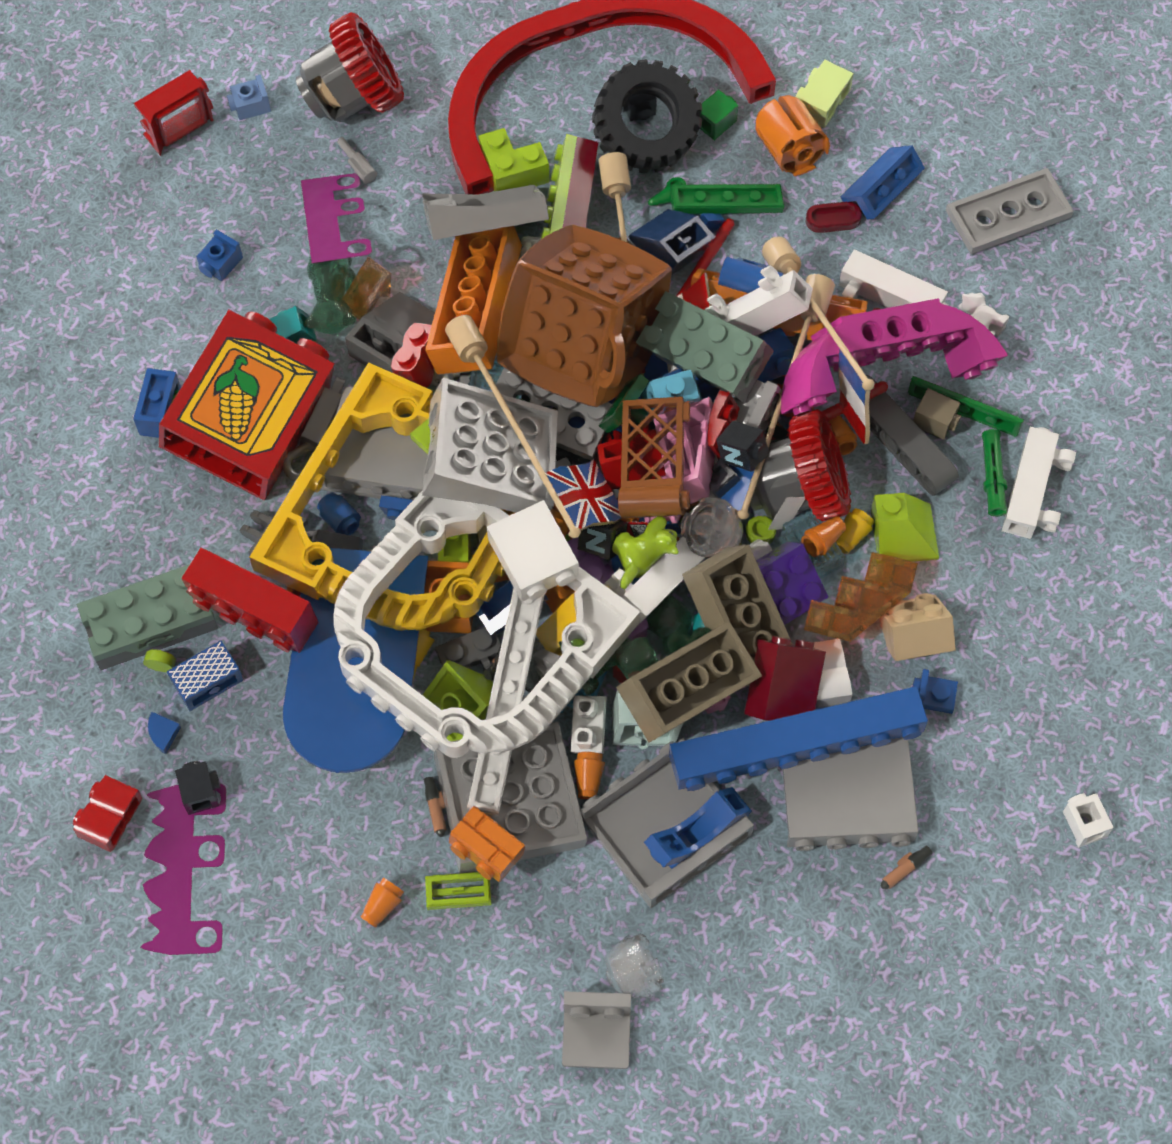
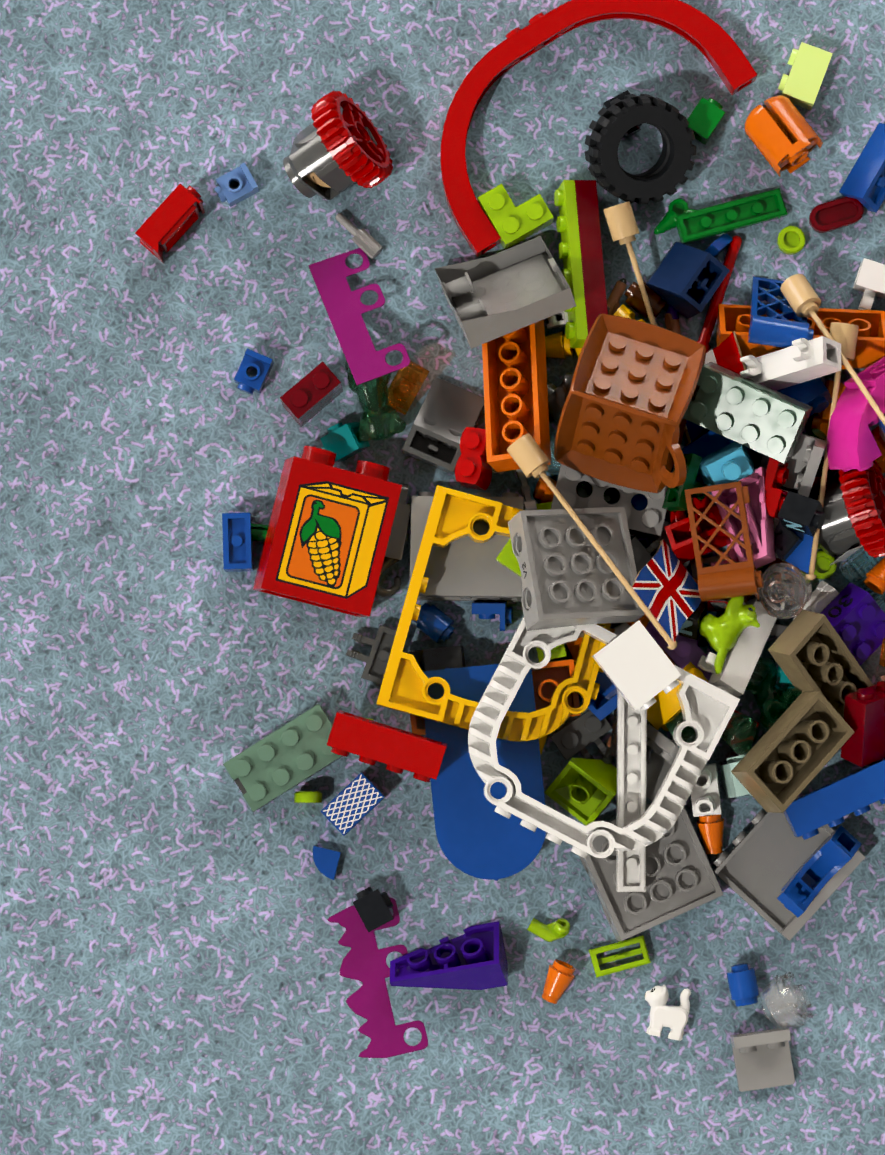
camera: 10 degrees left, 20 degrees up
(107, 813) = (300, 946): red brick -> none
(268, 276) = (311, 394): none -> dark red brick
(285, 864) = (465, 962): none -> dark purple wedge
(386, 849) = (551, 931): none -> lime arm
(435, 804) = (583, 882): piece -> none
(485, 844) = (641, 923): orange brick -> none
(497, 963) = (667, 1016): none -> white animal
(590, 944) = (743, 984): none -> blue brick
(784, 228) = (791, 240): none -> lime tile

